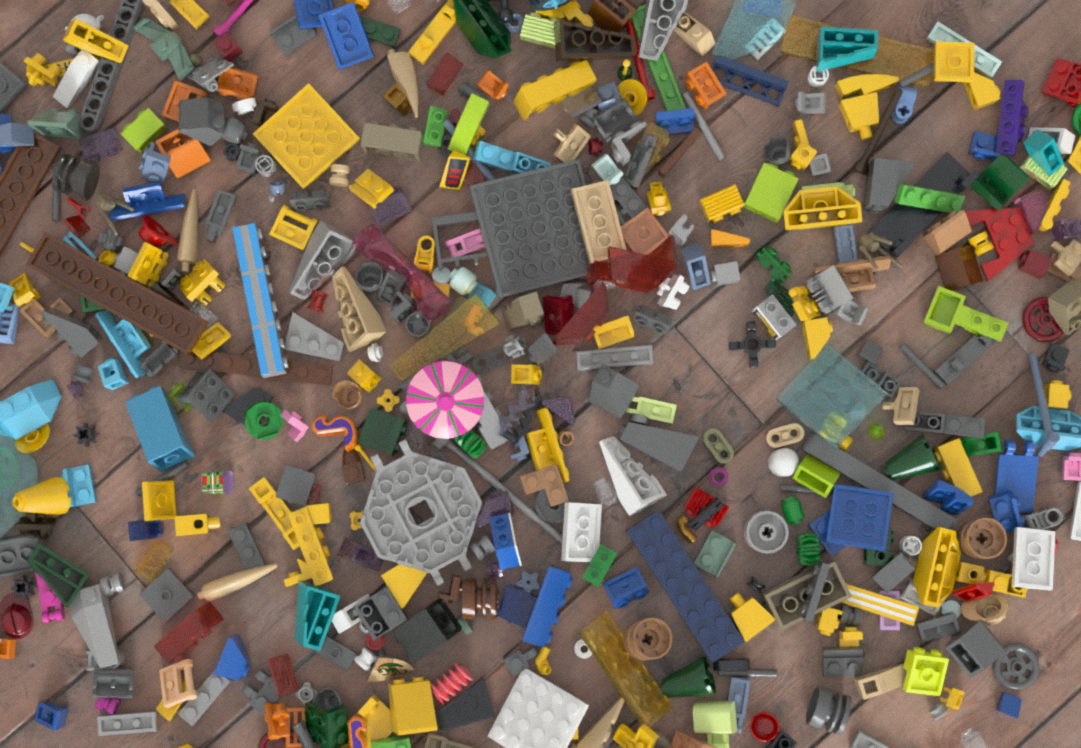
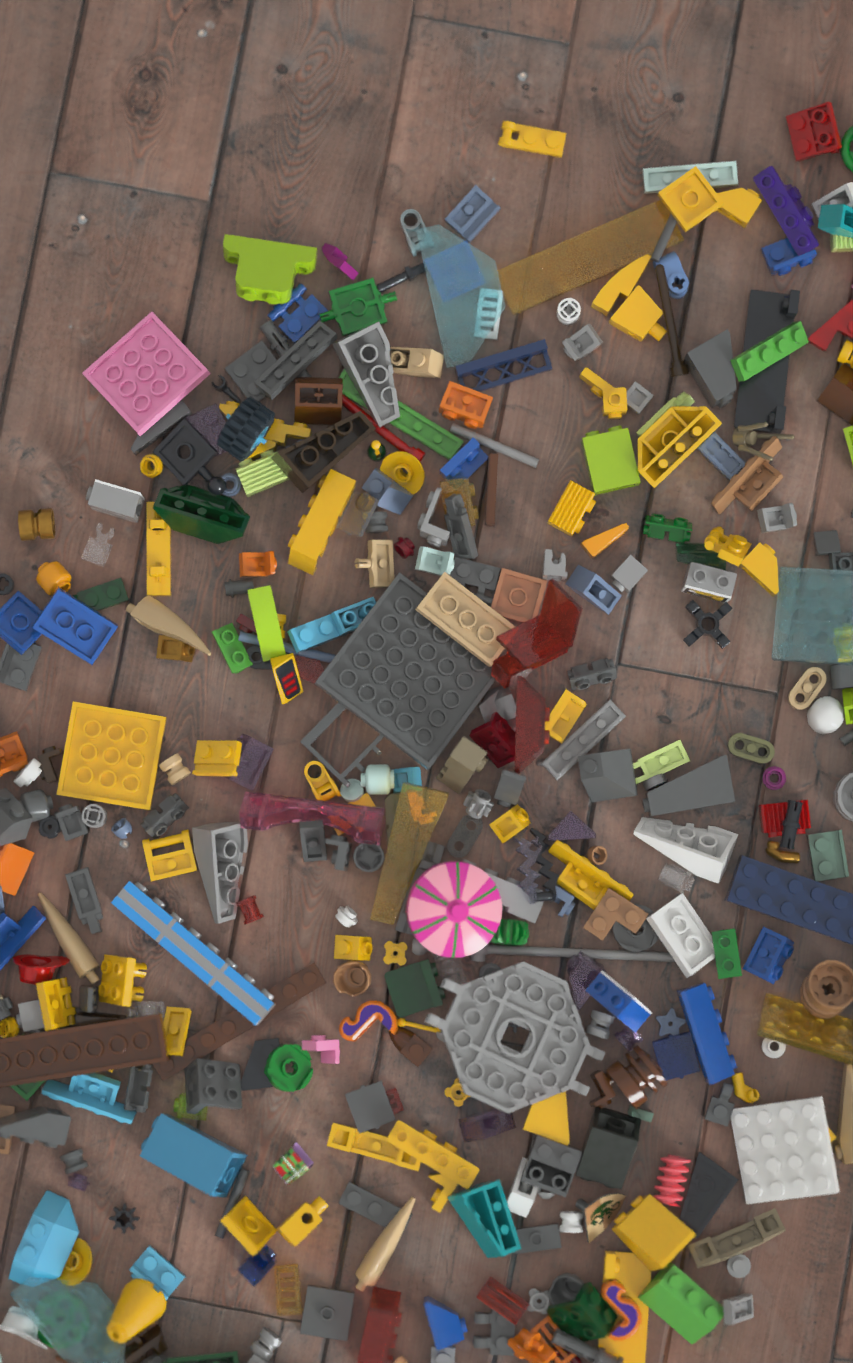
camera: 45 degrees left, 0 degrees up
(109, 379) = (95, 1140): medium azure brick -> none
(311, 340) = (274, 952): light grey wing -> none
(320, 513) = (415, 1115): yellow brick -> none
(359, 317) = (301, 892): tan wedge -> none
(370, 276) = (283, 845): dark grey hair -> none
(375, 644) = (566, 1202): red plate -> none
(392, 141) = (202, 695): dark tan brick -> none
(444, 74) = (200, 589): clear red slope -> none
(470, 242) = (354, 736): bright pink plate -> none
(615, 119) = (406, 506): dark grey hinge -> none
(658, 199) = (506, 552): yellow hips -> none
(668, 290) = (586, 632): white hips -> none
(778, 150) = (586, 415): dark grey hair -> none
(829, 289) = (741, 514): light grey hinge -> none
(844, 46) = (573, 265): teal wedge -> none
(944, 235) = (812, 370): slope -> none
(1000, 181) = (824, 281): dark green bracket -> none

